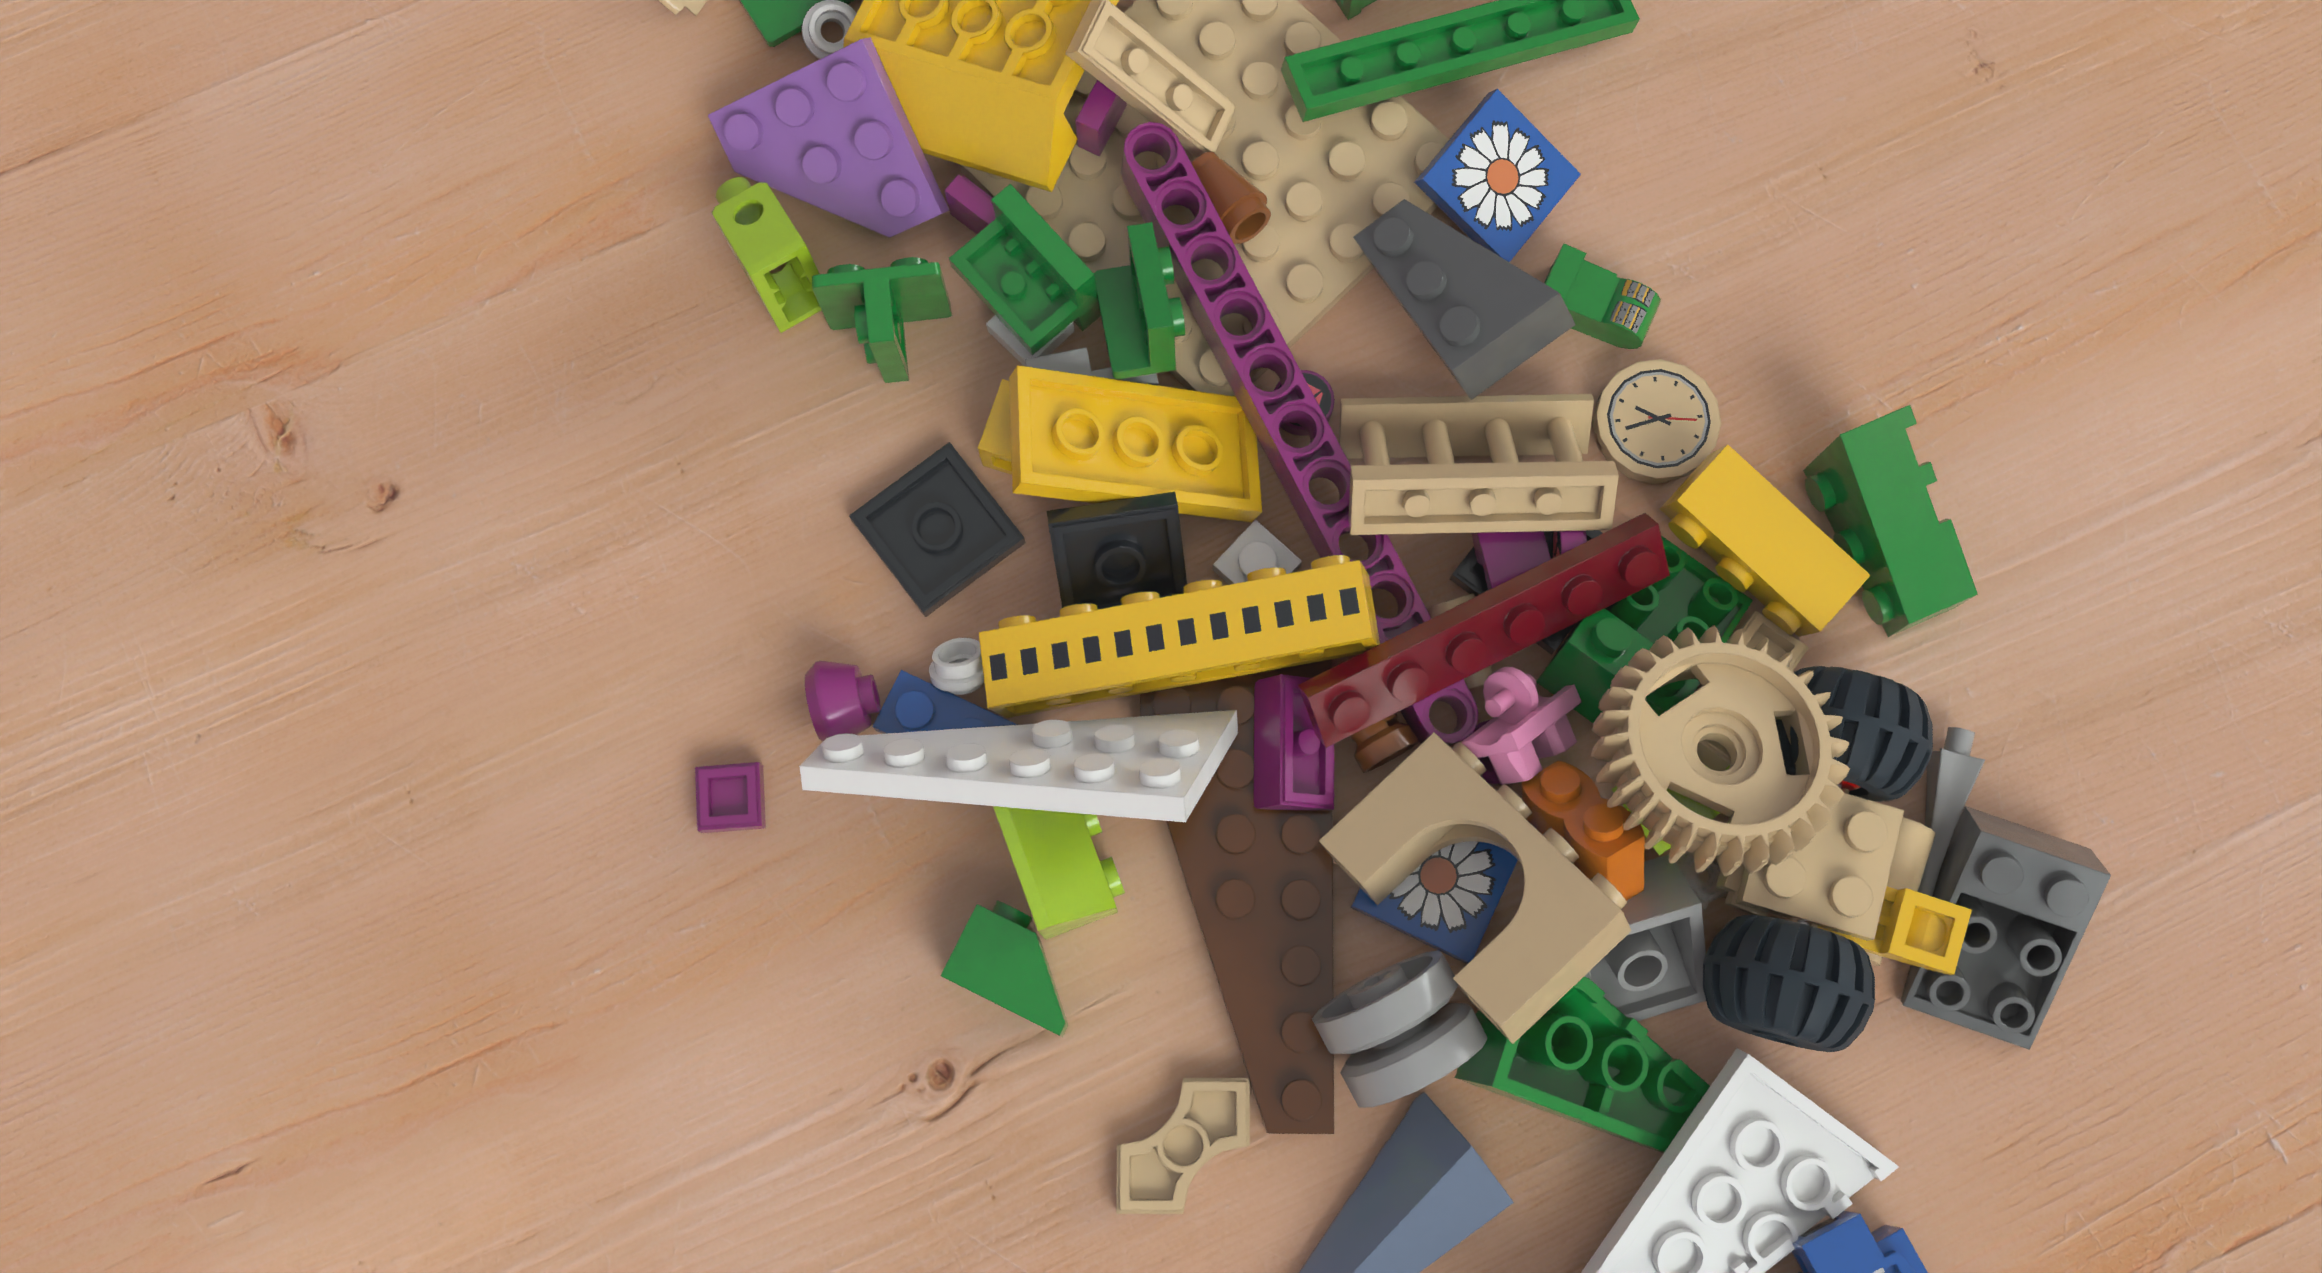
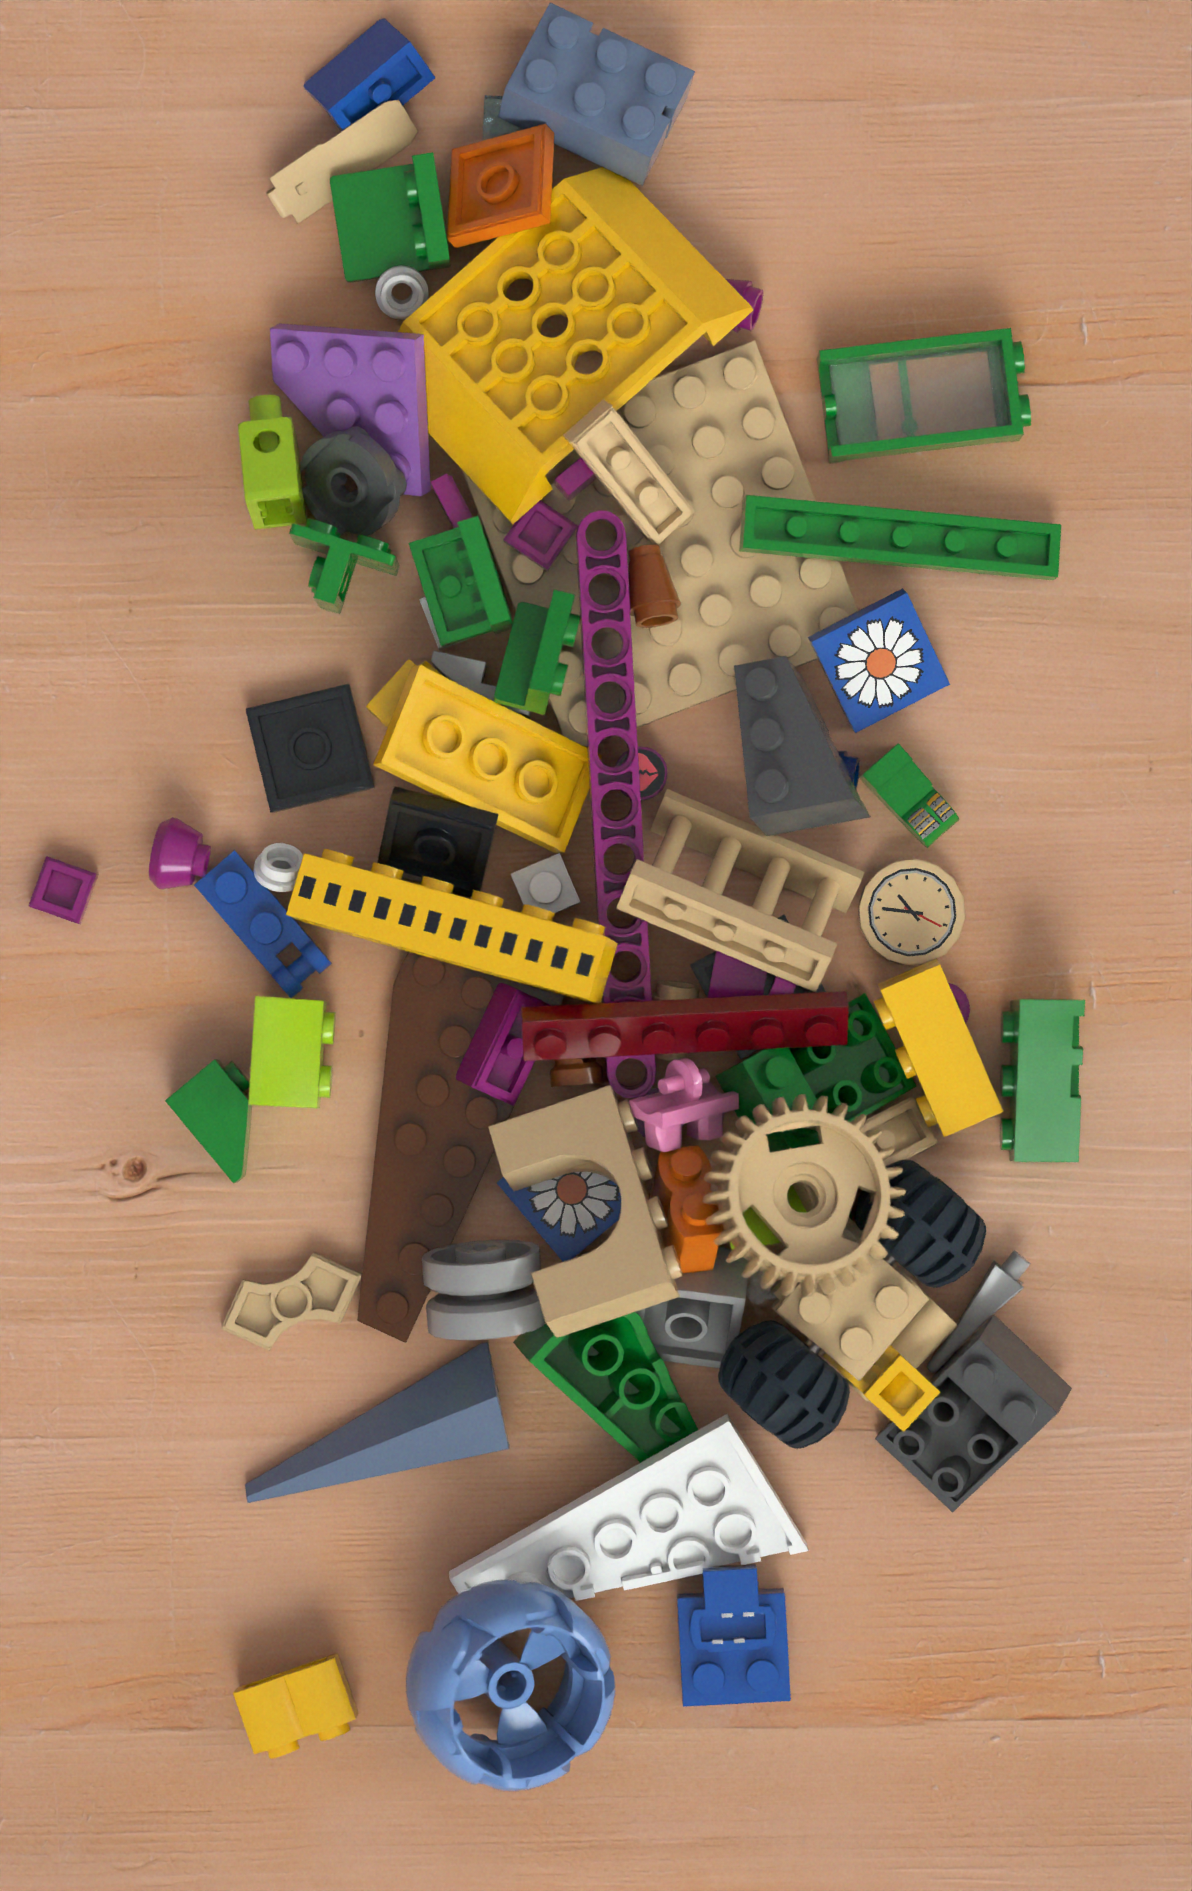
camera: 25 degrees right, 10 degrees up
(867, 195) = (371, 468): none -> dark grey plate
(1085, 197) = (541, 534): none -> magenta tile
(1093, 767) = (337, 996): white wing -> none

